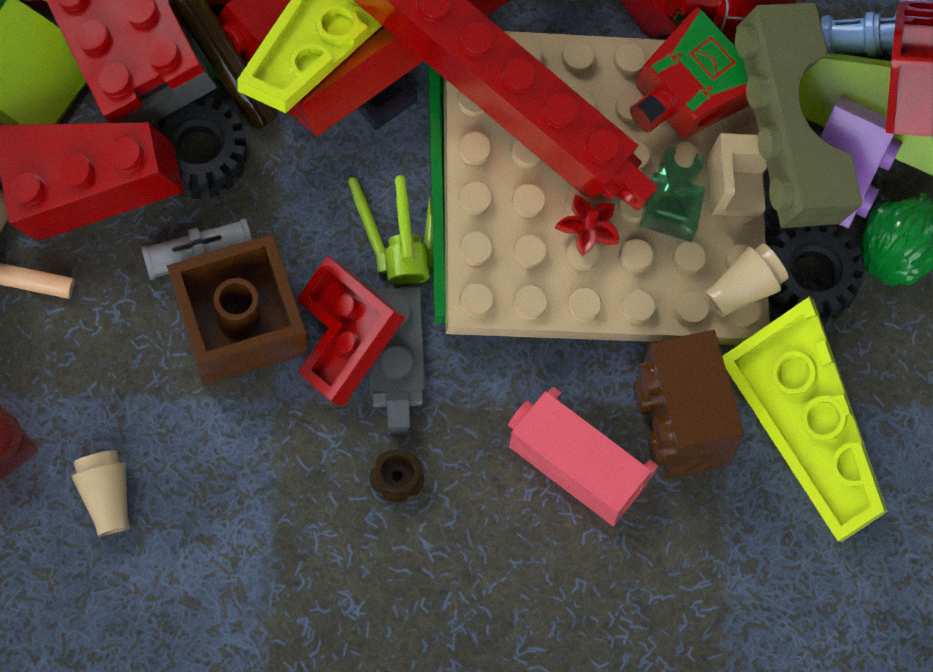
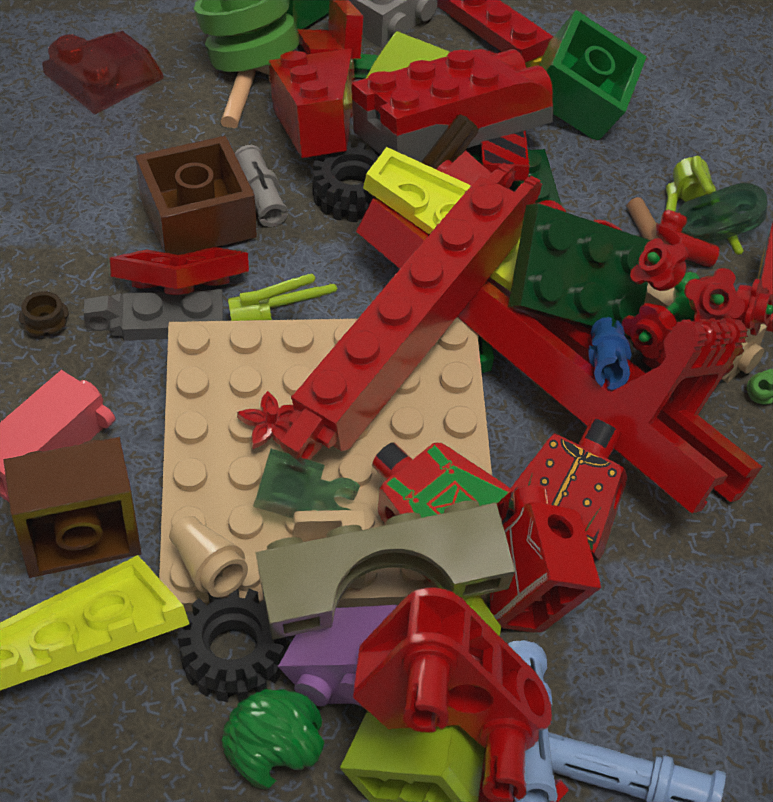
camera: 90 degrees right, 20 degrees down
(103, 489) = (50, 139): tan cone -> none

